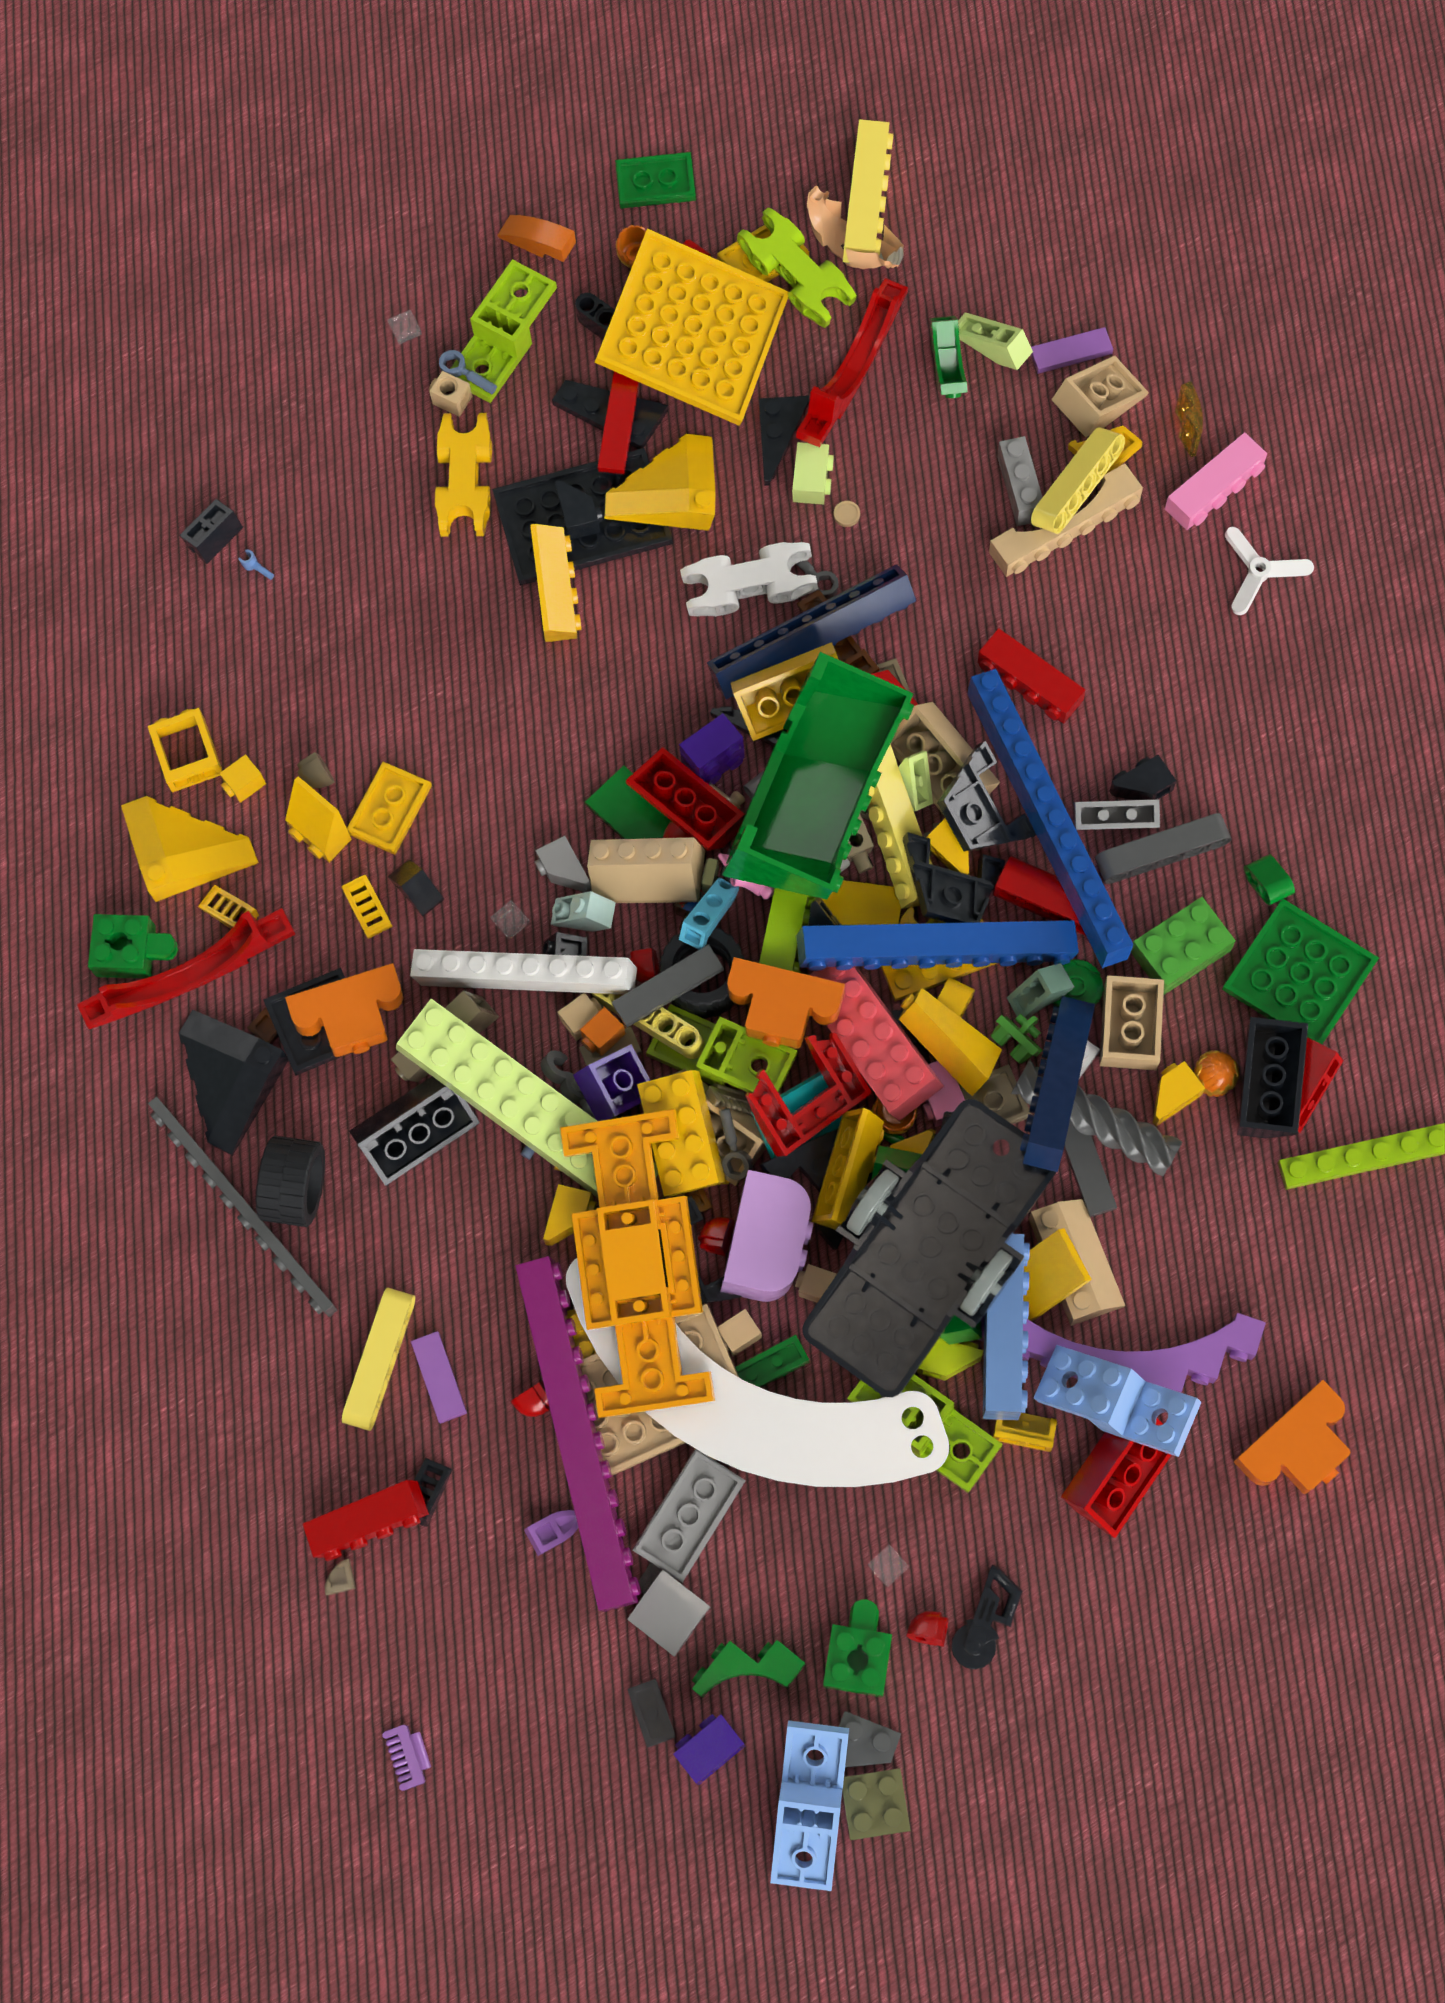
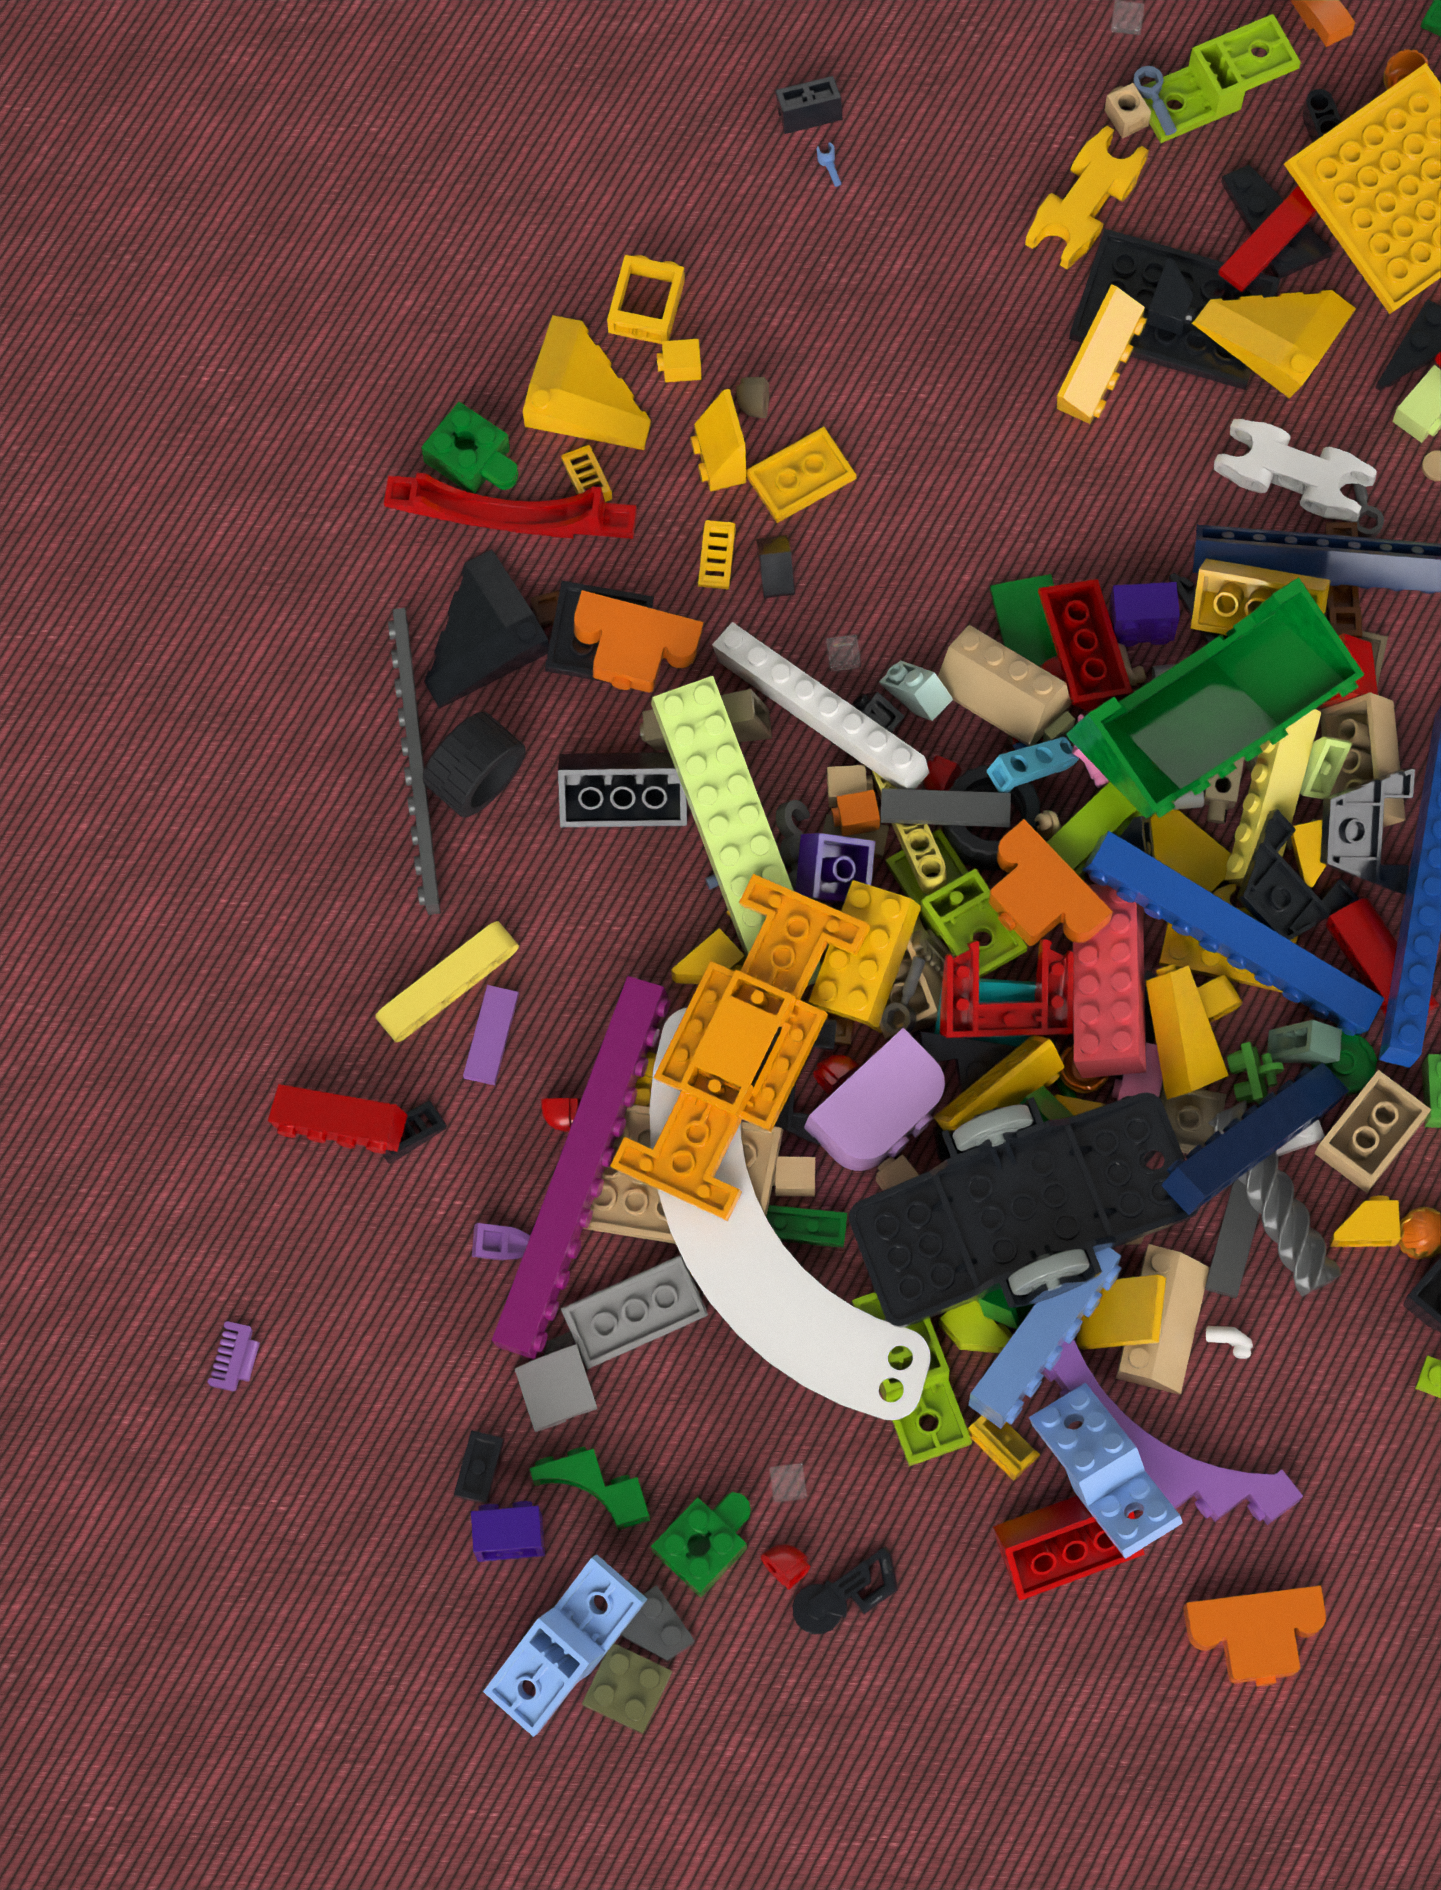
camera: 30 degrees right, 0 degrees up
(340, 1579) = (280, 1158): dark tan tile -> none
(561, 865) = (926, 632): light grey slope -> none
(751, 949) = (1048, 825): none -> tan arm
(1134, 1238) = (1231, 1335): none -> white arm

